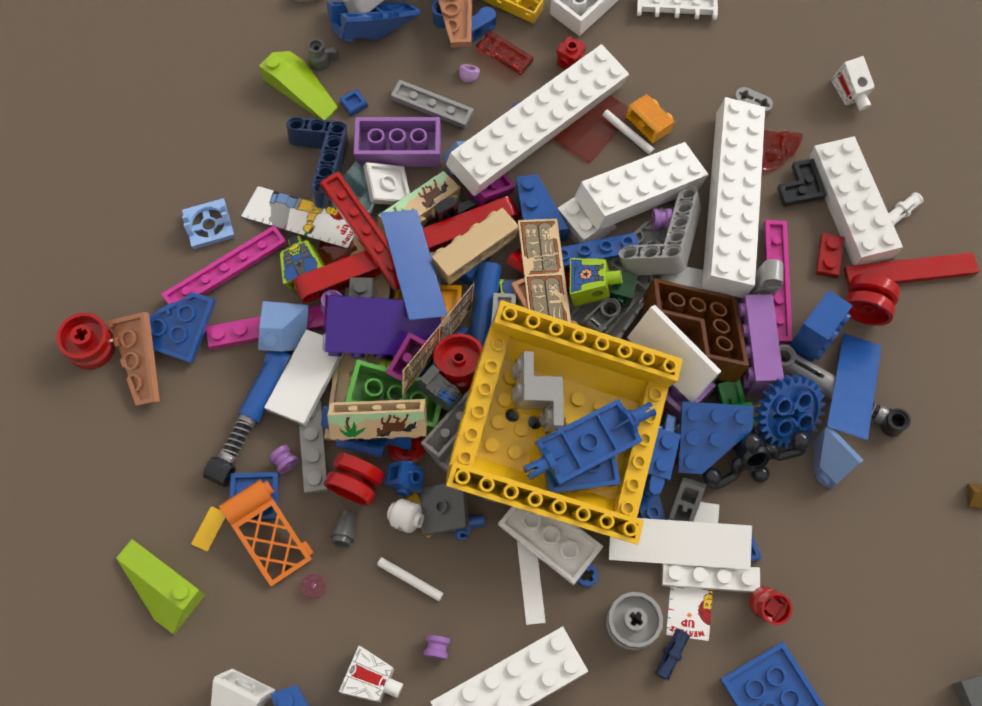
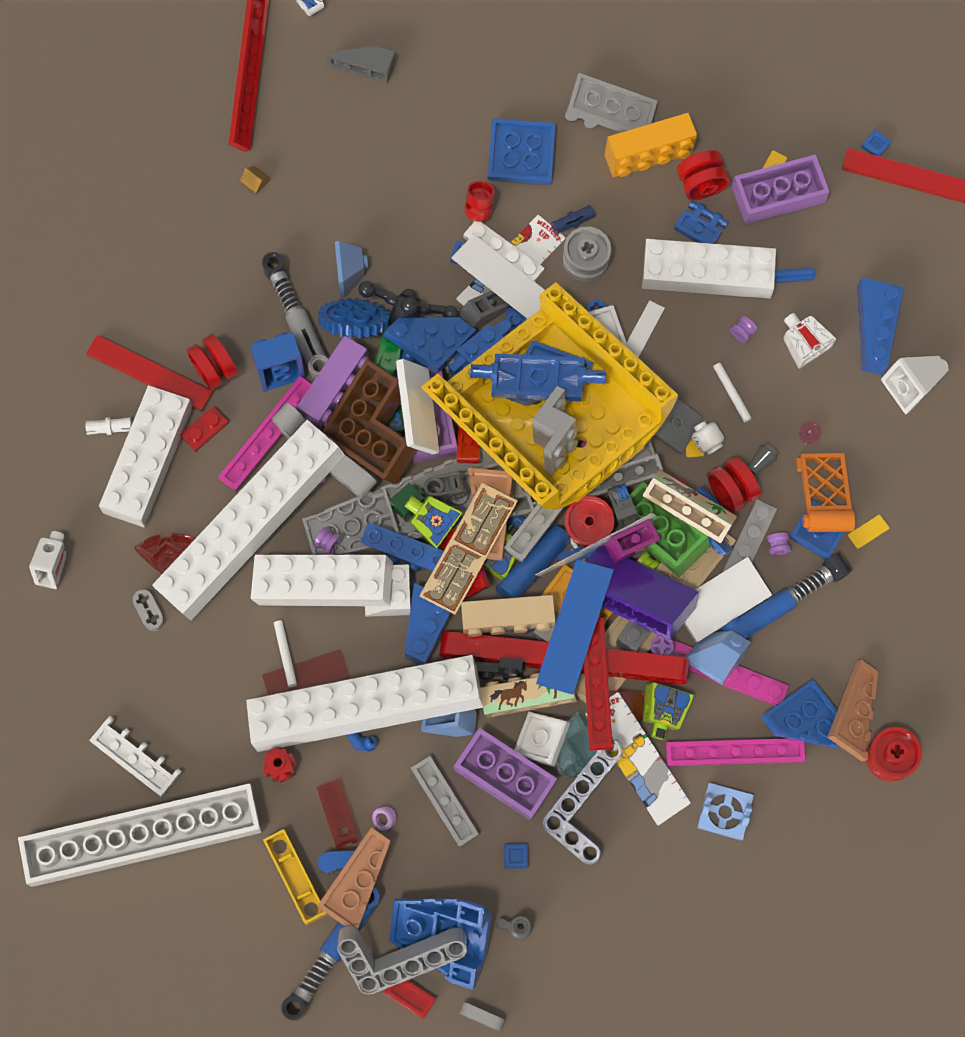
camera: 150 degrees left, 5 degrees up
(162, 589) = (930, 505): lime wedge -> none
(297, 81) = (555, 914): lime wedge -> none
(404, 477) = (691, 464): blue brick -> none
(650, 118) = (256, 650): light orange brick -> none
(675, 252) = (333, 510): light grey beam -> none
(807, 186) = (173, 496): black plate -> none
(854, 387) = (285, 304): blue sticker -> none

